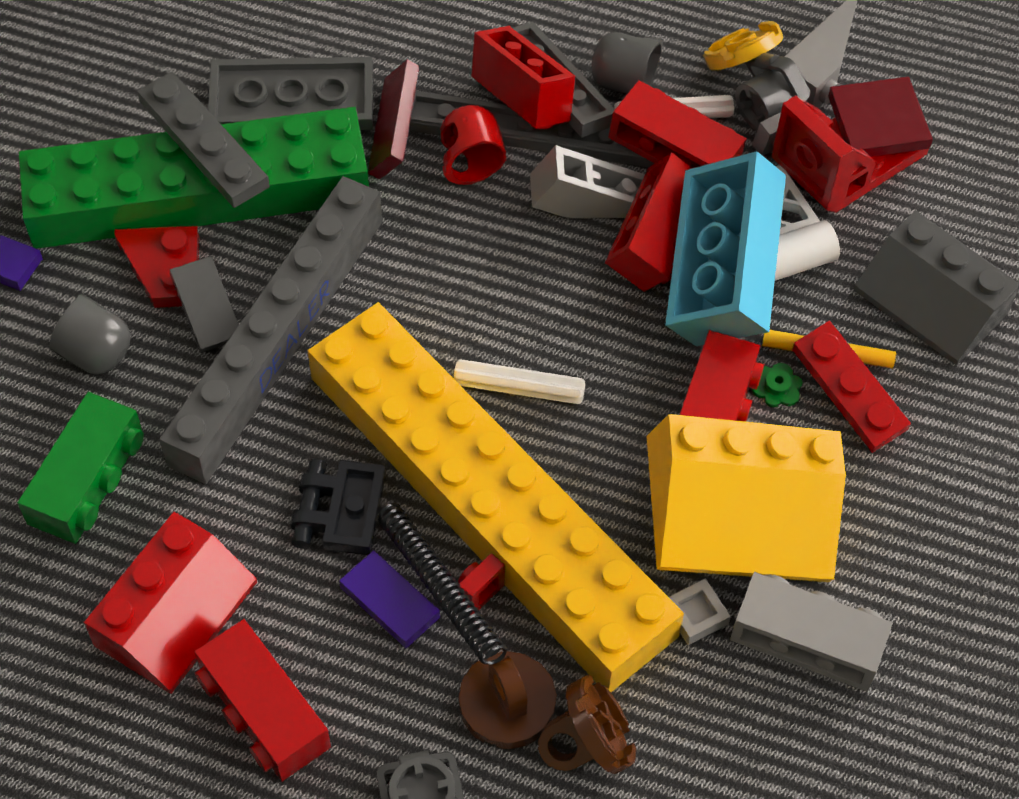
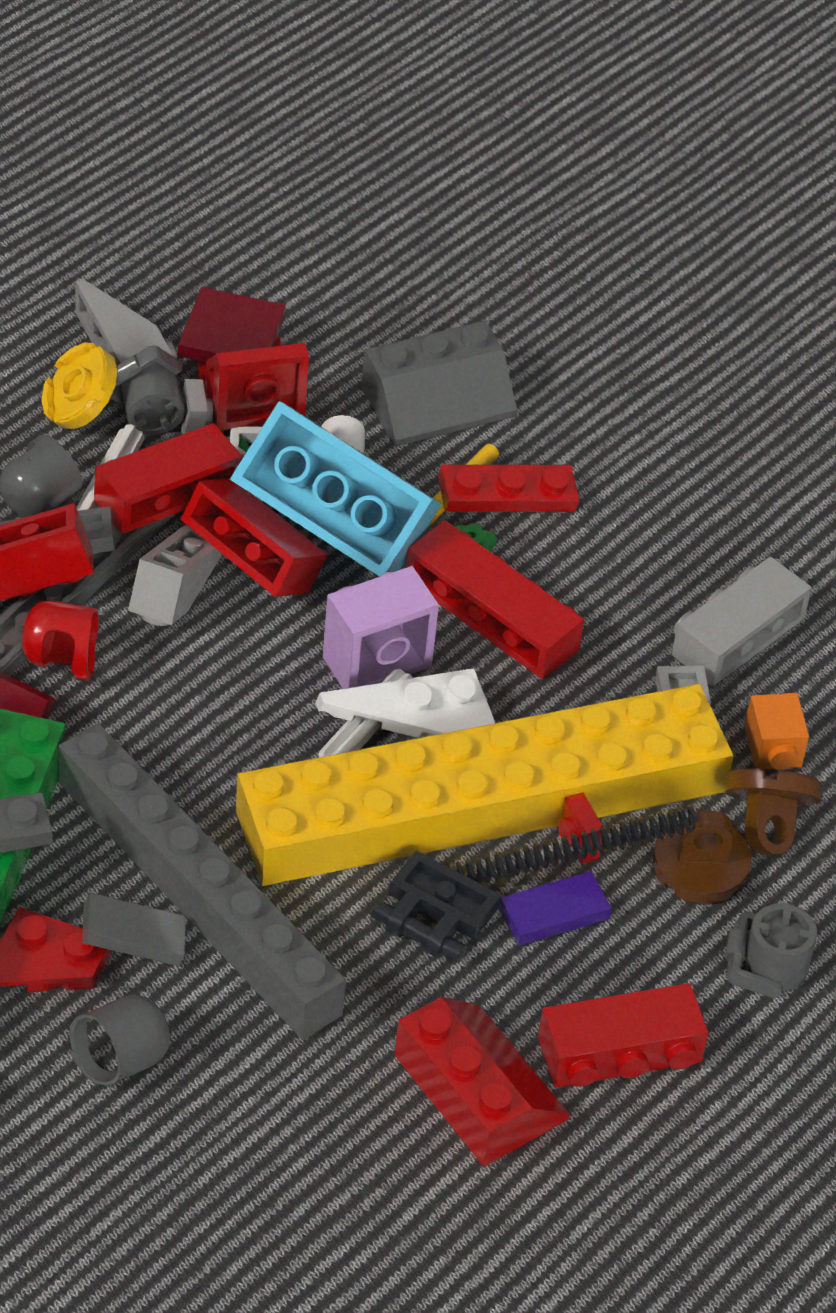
camera: 70 degrees left, 10 degrees down
(82, 468) = (281, 1099): green brick -> none
(554, 423) = (415, 705): none -> white wing
(600, 343) = (380, 628): none -> lavender brick
(688, 708) = (776, 731): none -> orange brick
(745, 497) = (605, 594): yellow slope -> none

